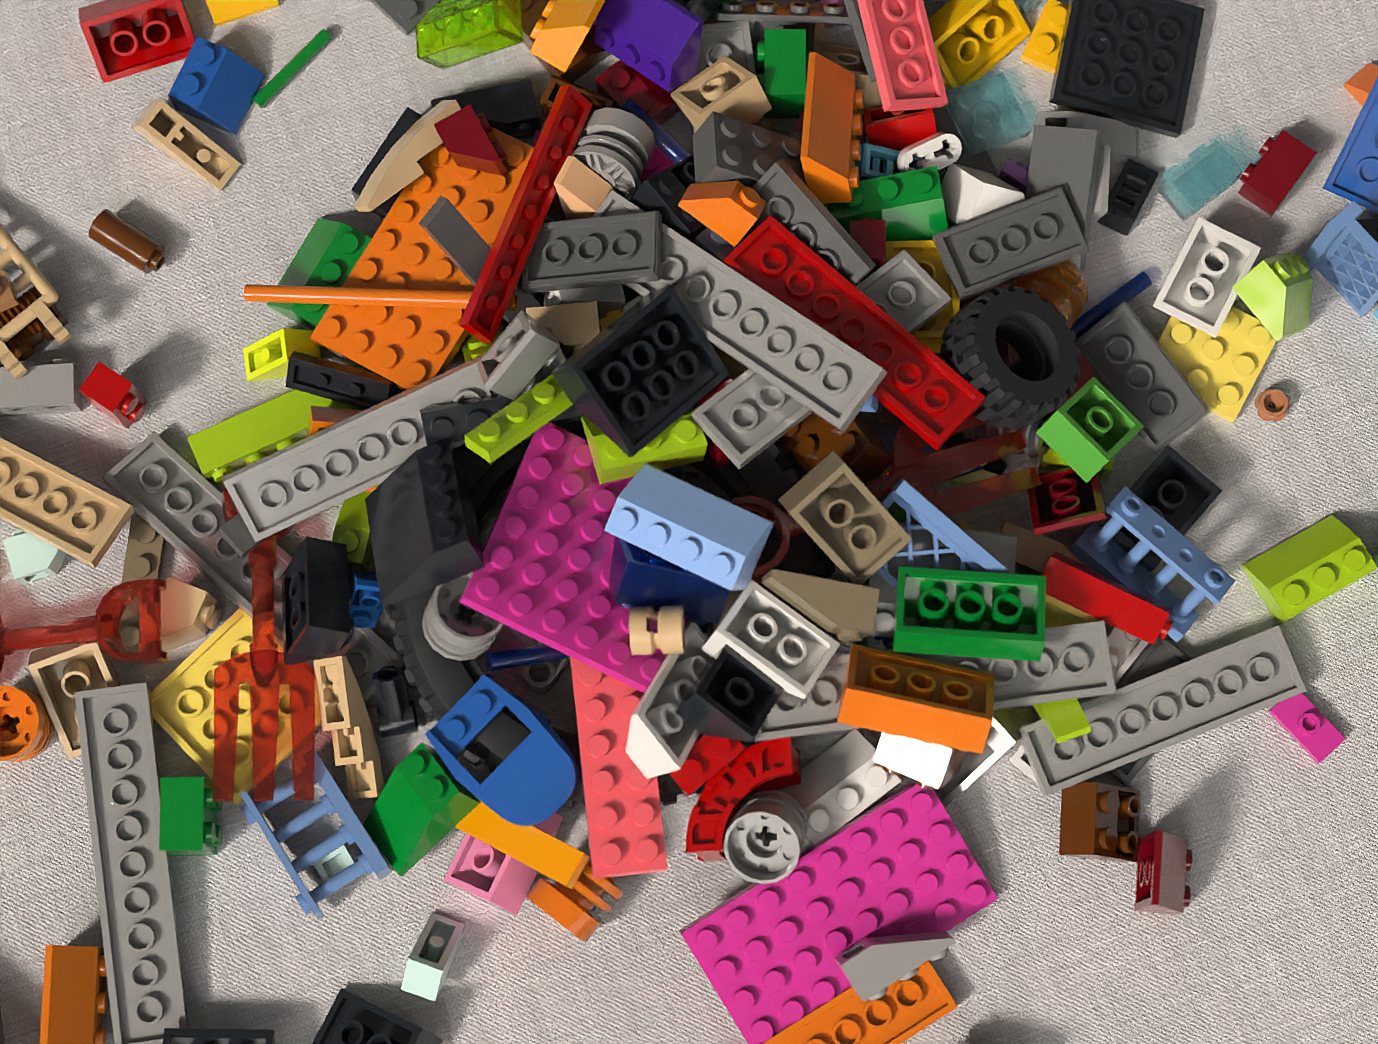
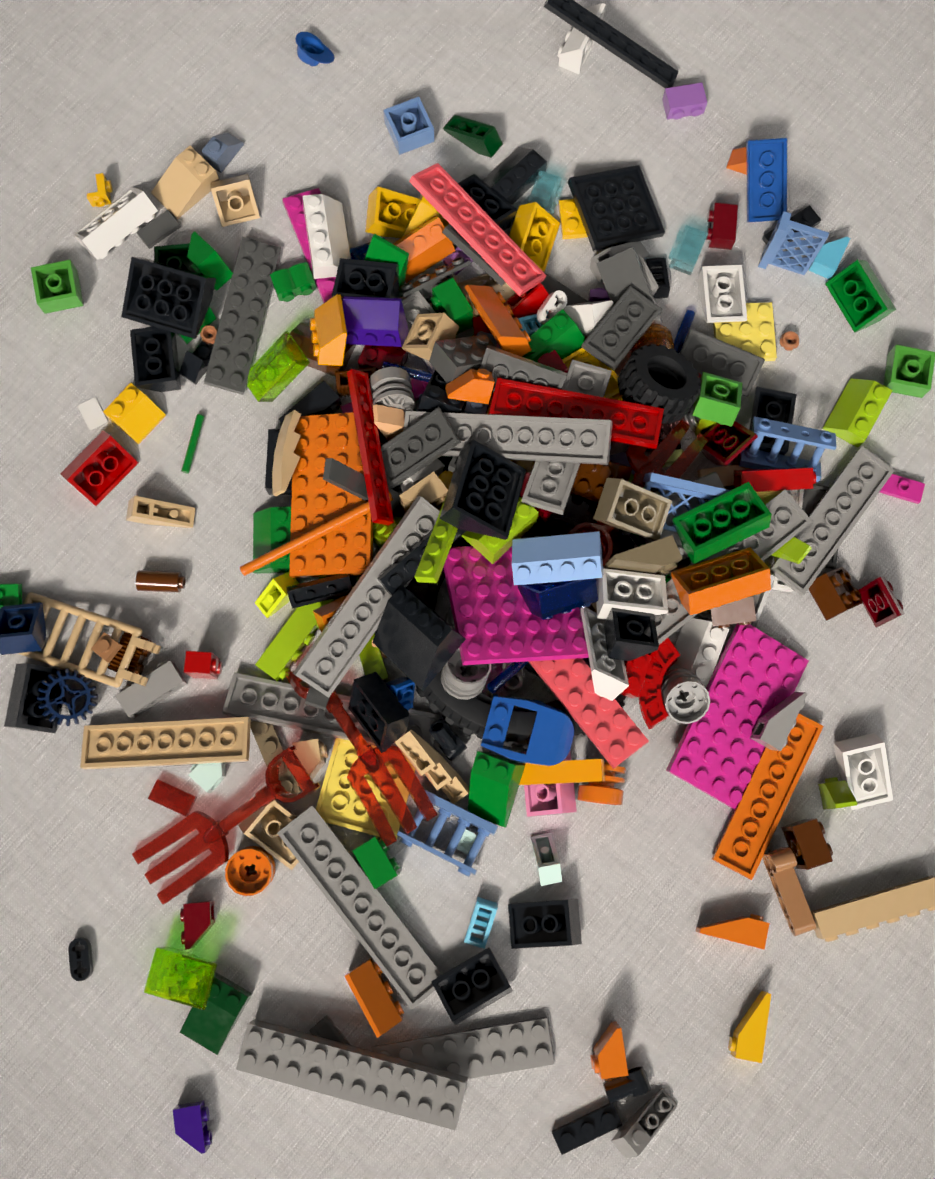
camera: 35 degrees left, 0 degrees up
(215, 86) = (158, 474): blue slope -> none
(309, 971) = (486, 904): none -> medium azure slope
(468, 142) = (316, 428): dark red slope -> none
(517, 356) = (414, 520): light grey slope -> none
(670, 630) = (580, 617): tan wheel -> none
(987, 113) = (564, 273): clear light blue plate -> none
(1279, 294) = (763, 281): lime slope -> none

